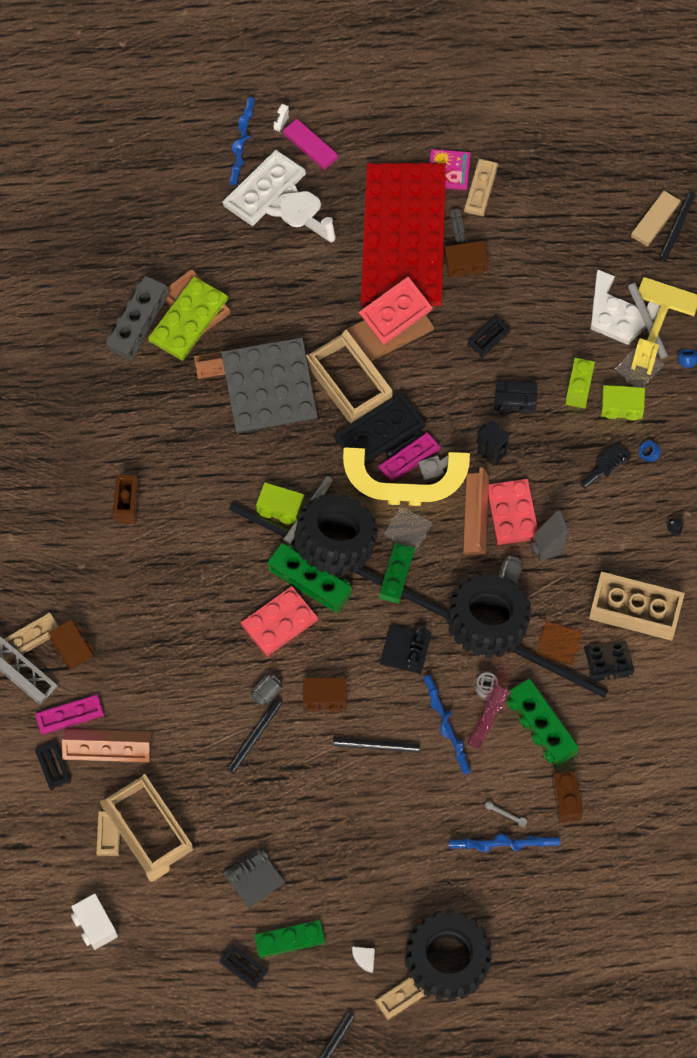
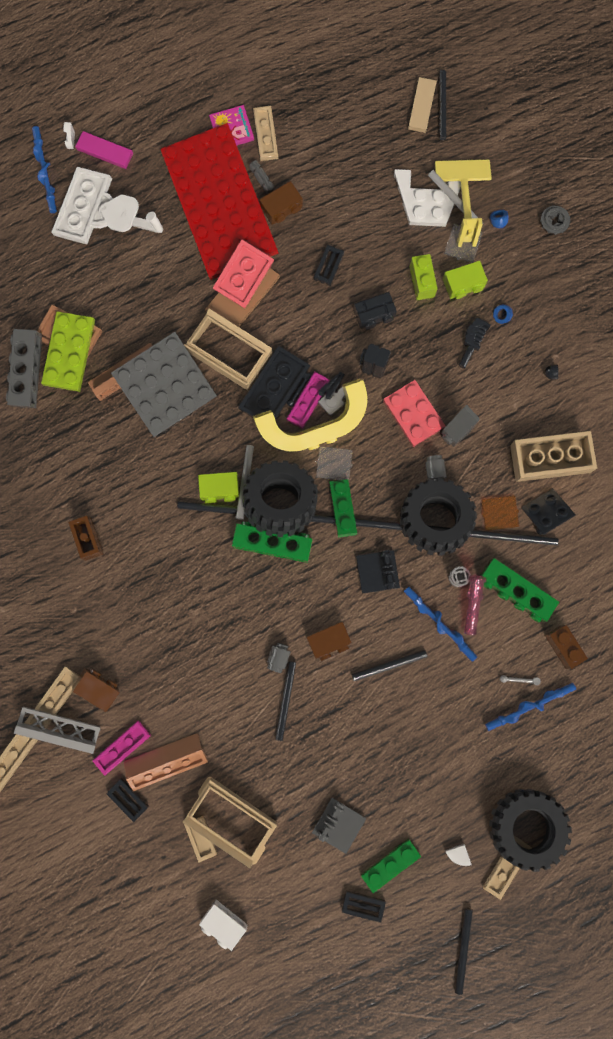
camera: 25 degrees left, 15 degrees up
(279, 621) = (262, 590): coral plate -> none
(437, 452) = (330, 387): none -> black piece
(476, 513) = (386, 428): nougat panel -> none

